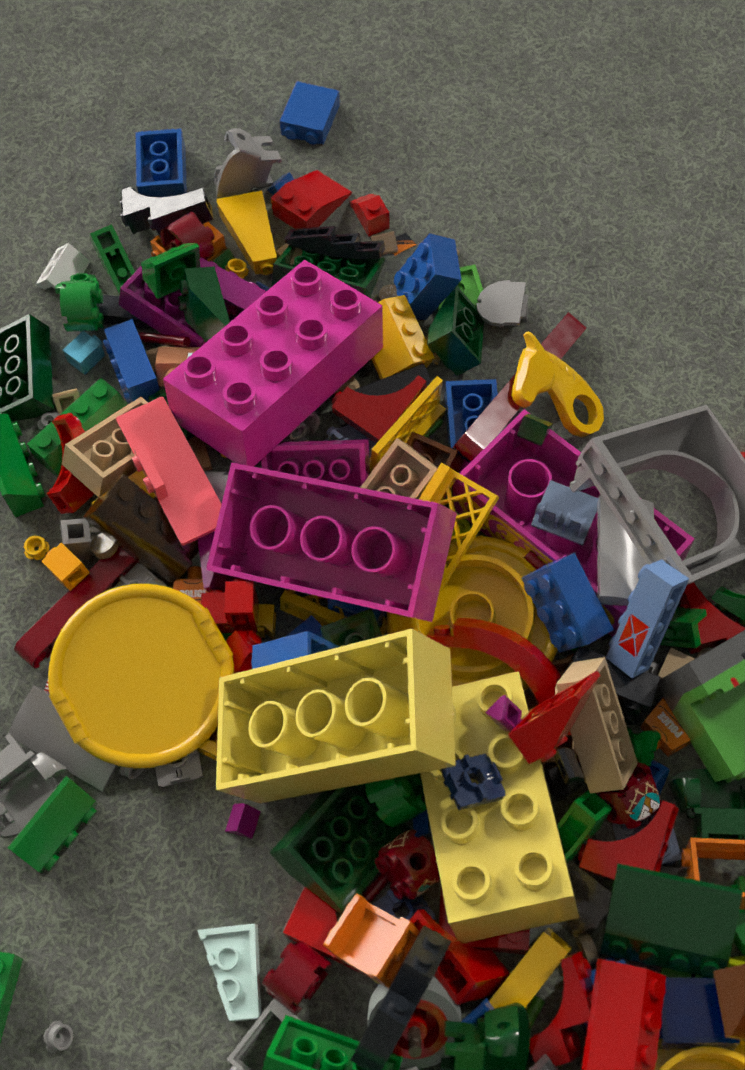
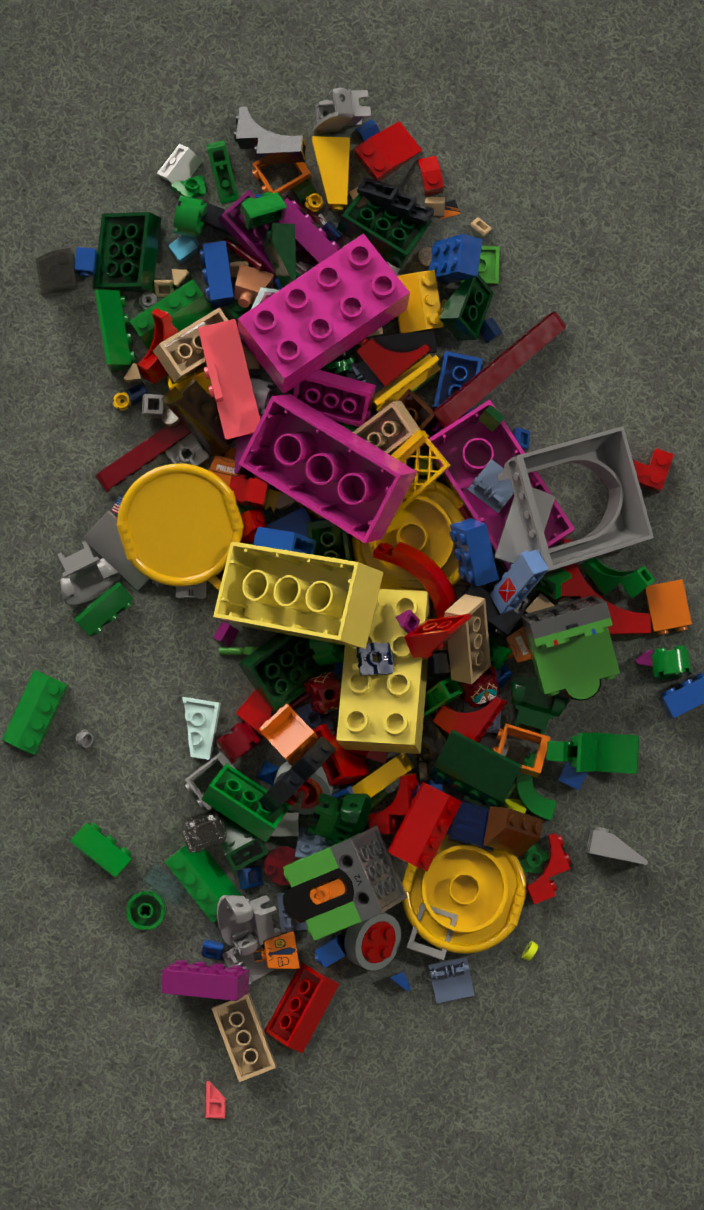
camera: 15 degrees right, 20 degrees up
(44, 511) = (133, 374): none -> tan slope
(52, 535) = (136, 393): none -> dark blue slope
(65, 566) = (141, 428): light orange slope -> none
(84, 381) = (179, 277): none -> tan slope
(161, 163) = (275, 90): blue brick -> none
(189, 230) = (282, 179): dark red brick -> none
(264, 840) = (236, 650): none -> bright green piece
(284, 618) = (284, 501): none -> tan slope
(309, 113) = (406, 65): blue brick -> none
(313, 432) = (339, 366): none -> green animal
(354, 1015) = (268, 772): none -> blue slope
(493, 356) = (490, 330): none -> dark blue slope
(503, 303) = (510, 290): light grey piece -> none
(544, 372) = (522, 366): yellow animal -> none

